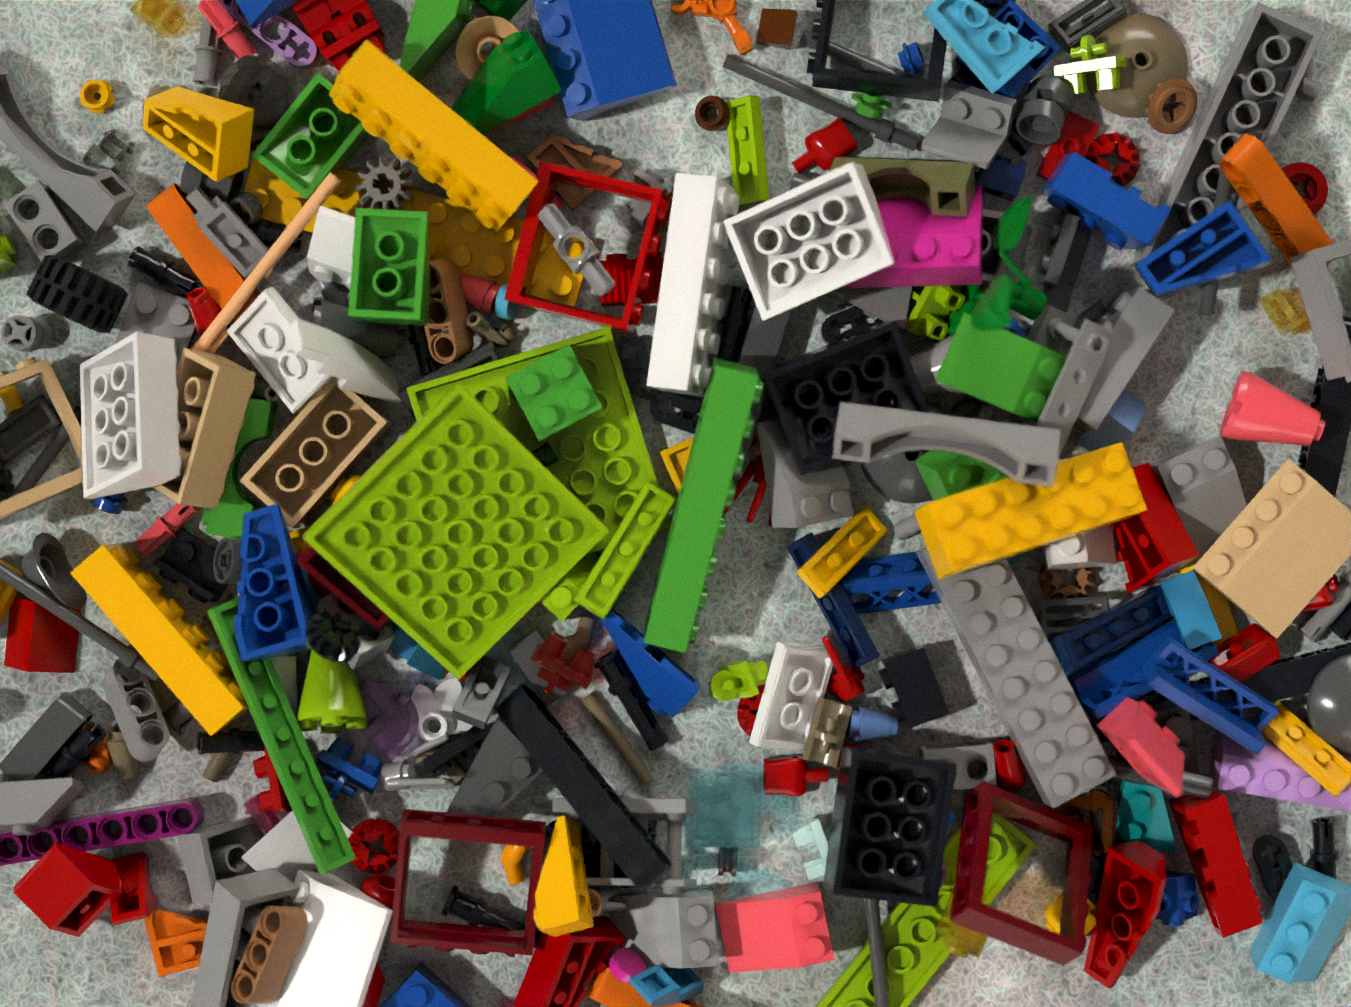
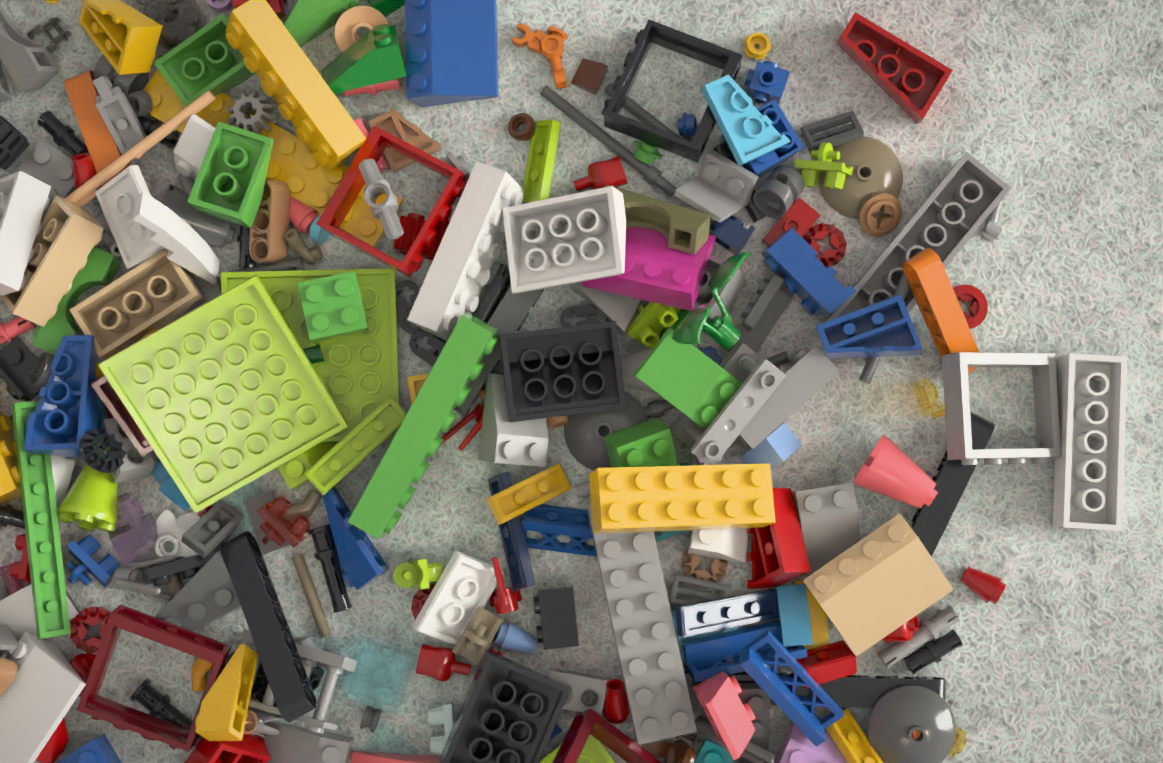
camera: 15 degrees right, 5 degrees down
(1017, 450) = (682, 446): light grey arch -> none

